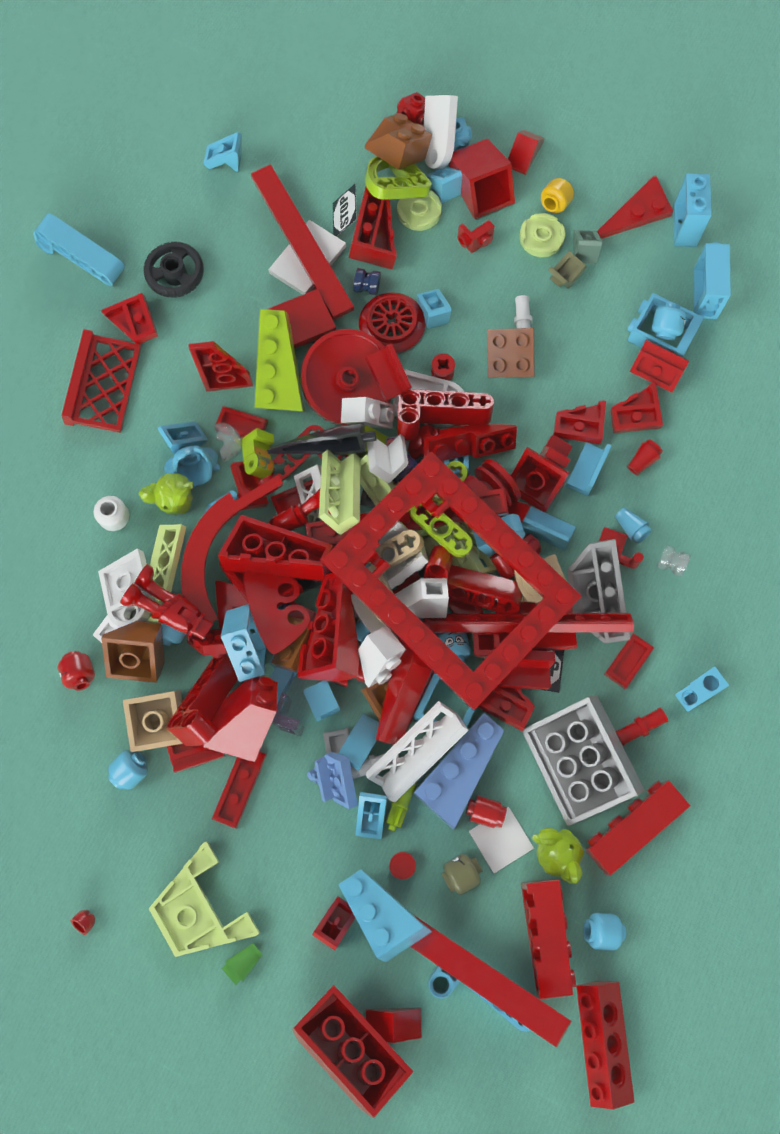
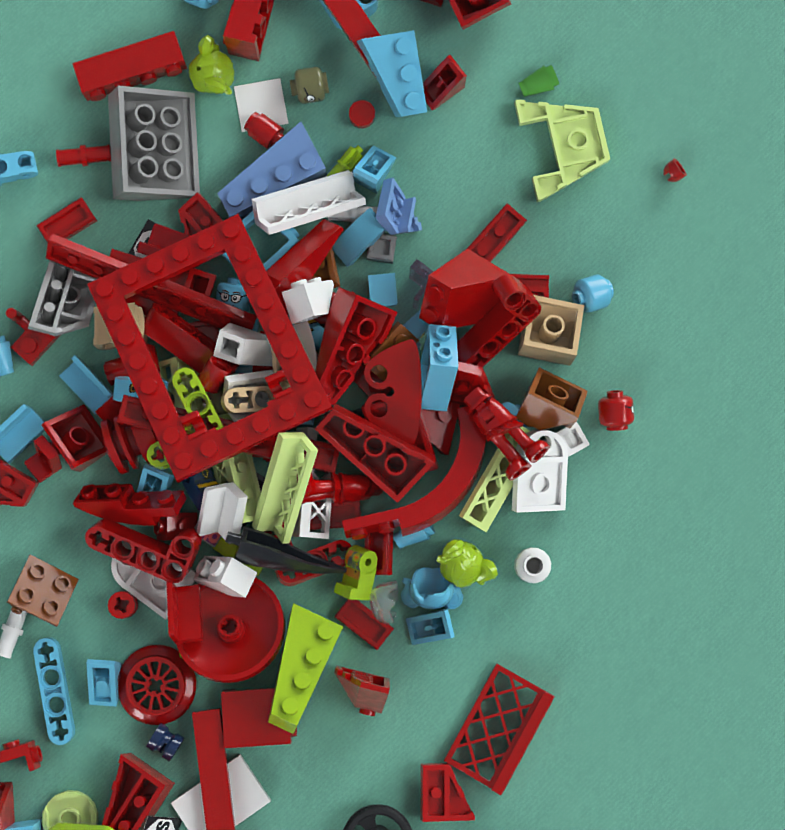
camera: 165 degrees left, 10 degrees up
(468, 291) = (49, 691): none -> medium azure beam

